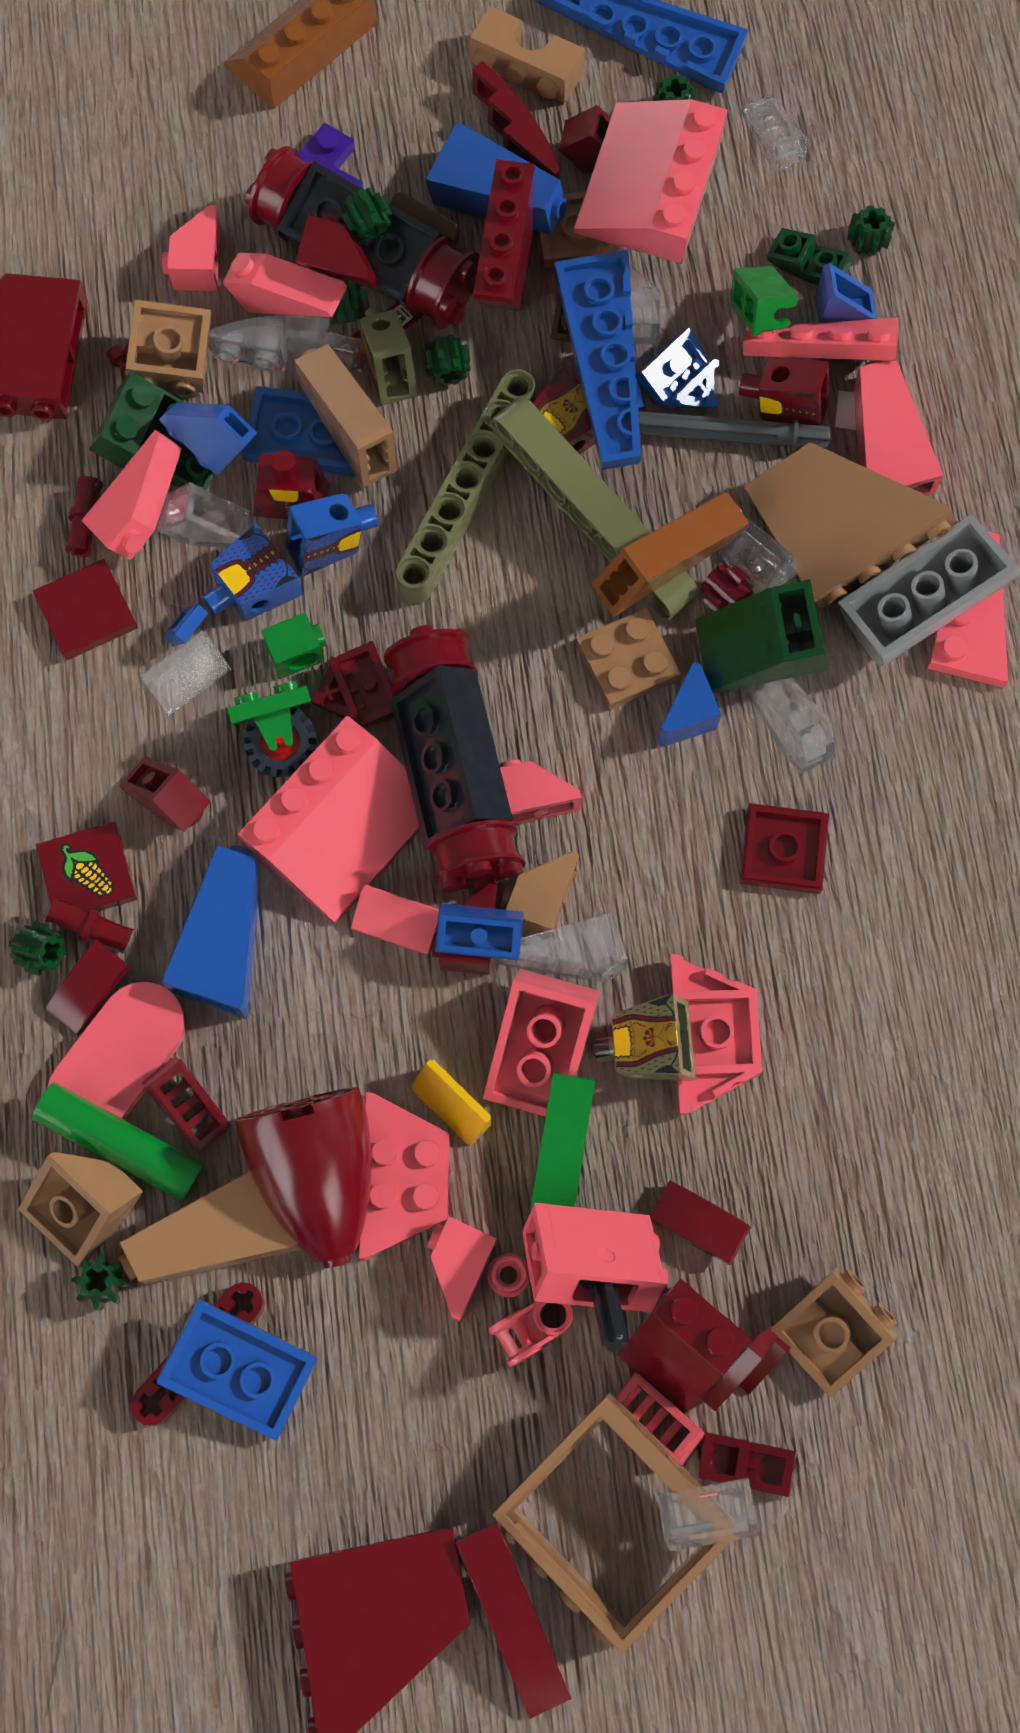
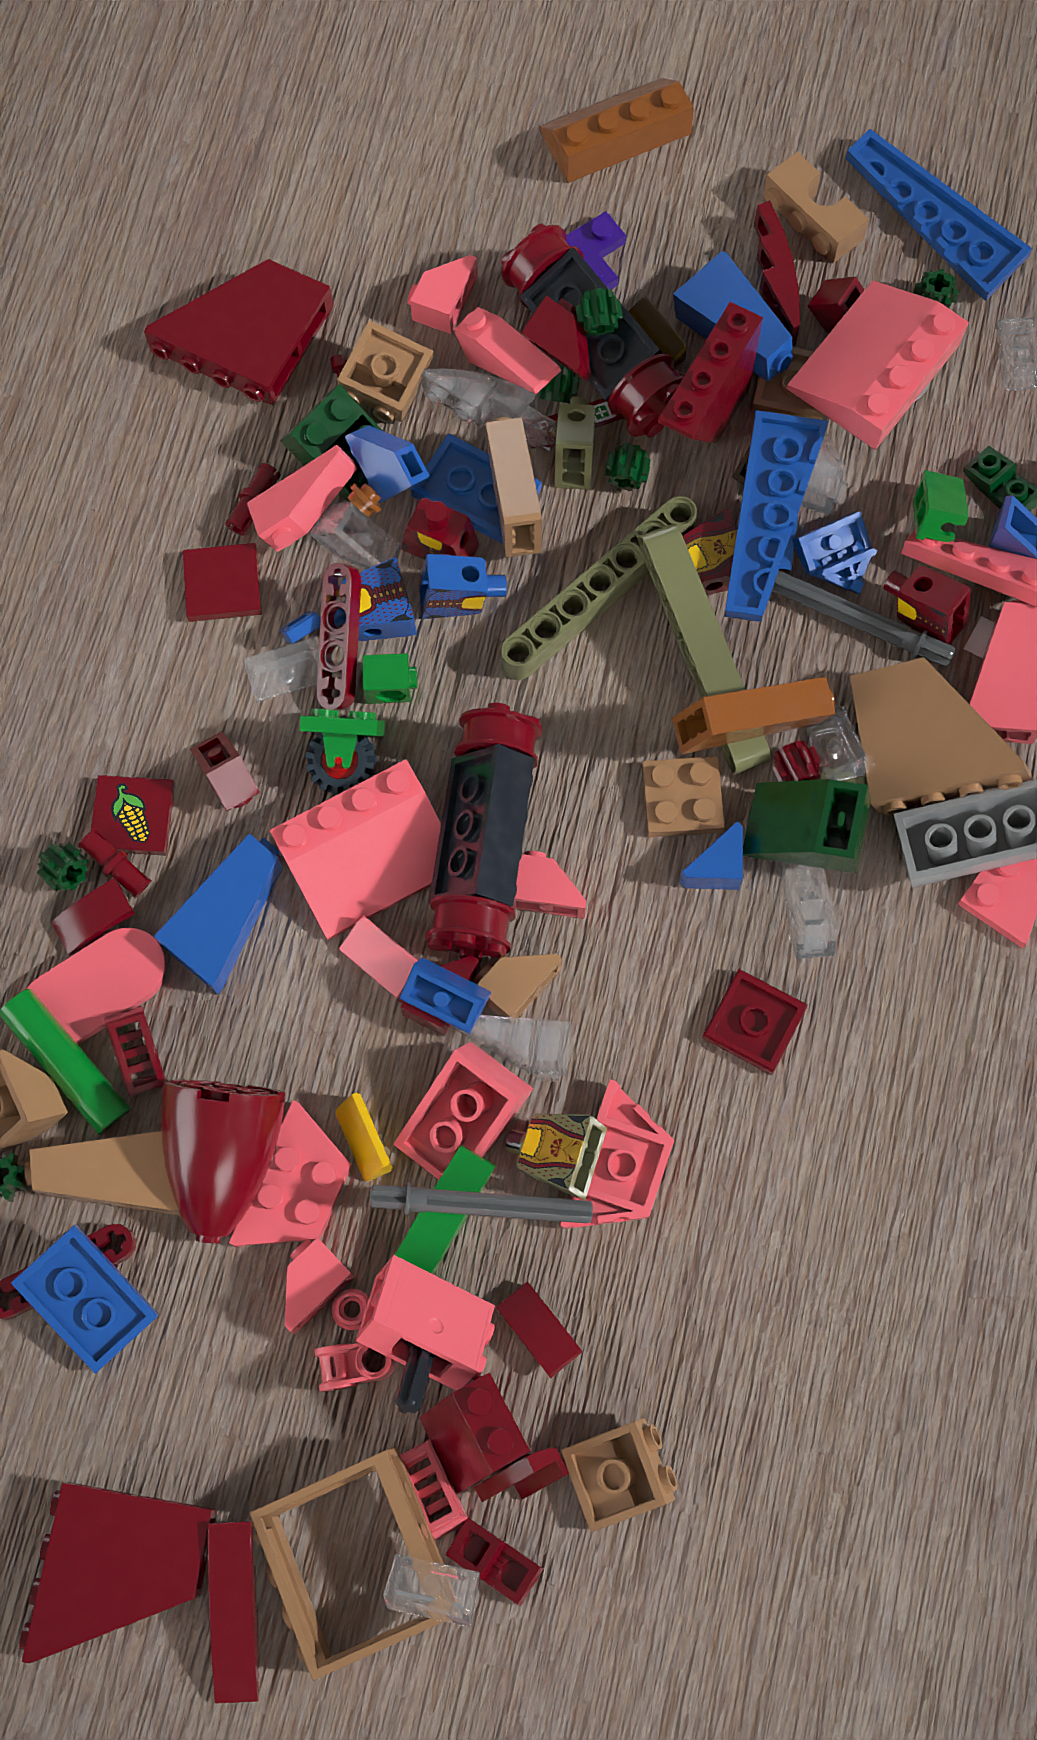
camera: 25 degrees right, 0 degrees up
(202, 475) = (365, 499): none -> dark orange plate
(223, 622) = (345, 636): none -> dark red beam
(356, 687) = (429, 735): dark red slope -> none
(597, 1121) = (482, 1204): none -> dark grey axle

